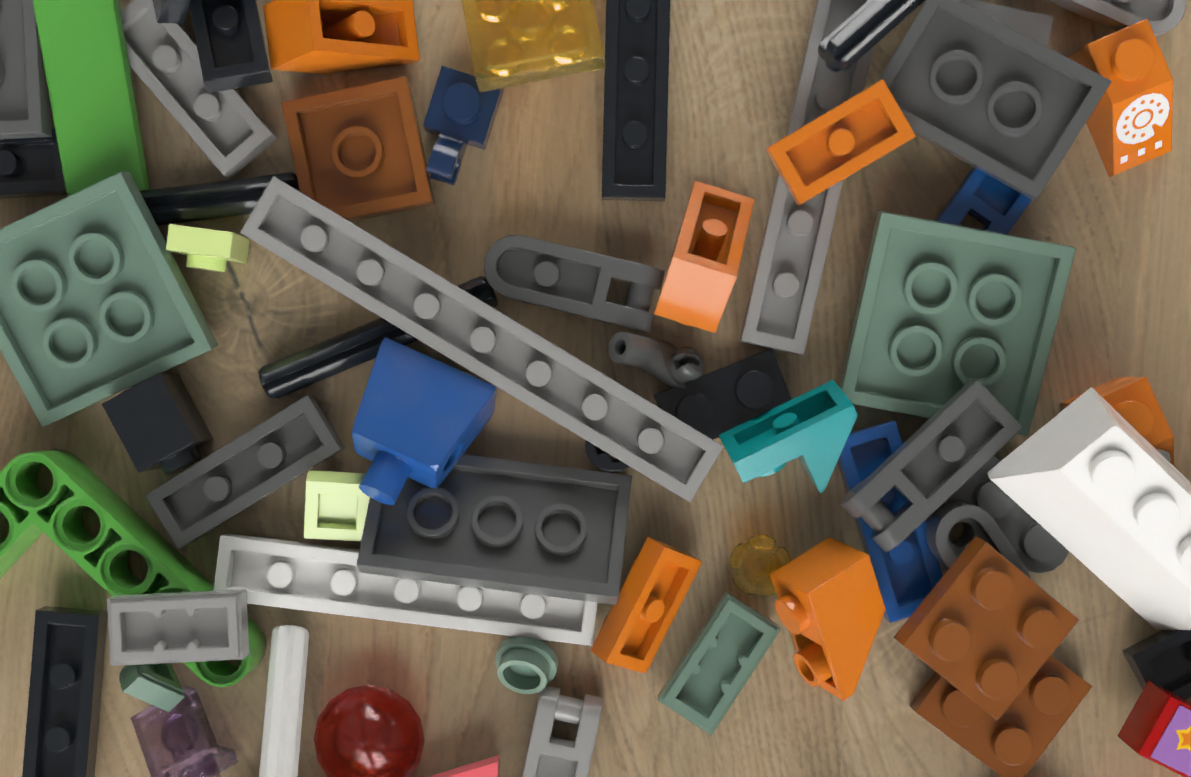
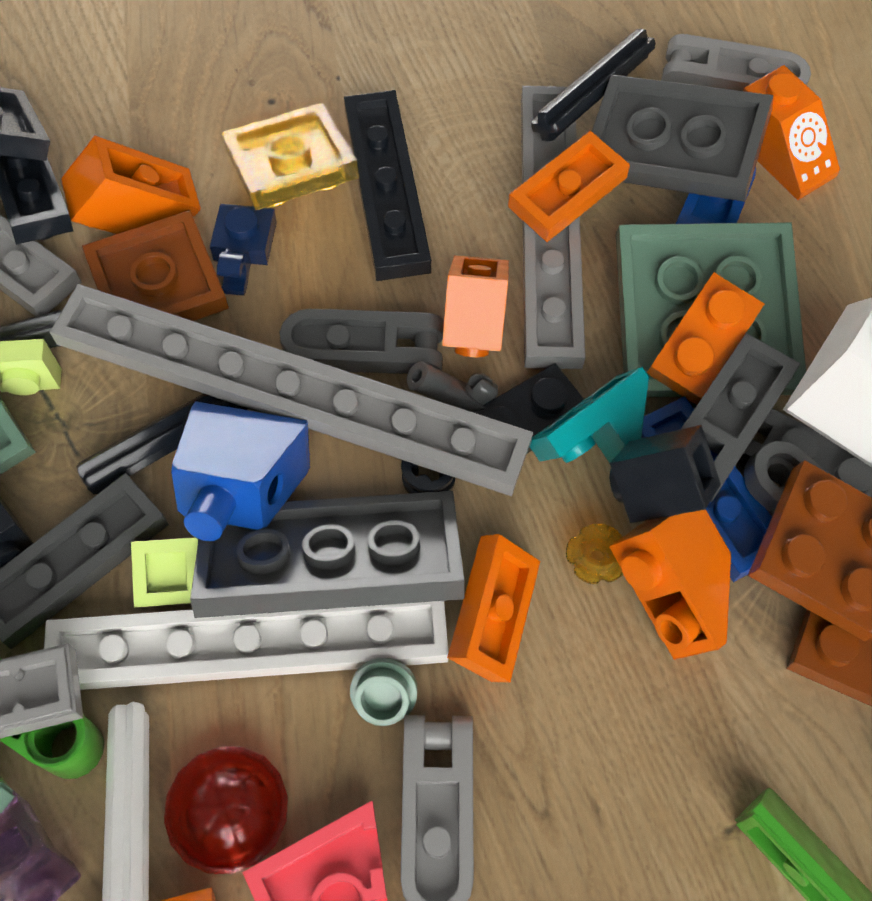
camera: 15 degrees left, 25 degrees down
(718, 663) = (582, 654): sand green plate -> none
(841, 531) = (664, 475): none -> black brick
(935, 367) = (705, 338): none -> orange plate

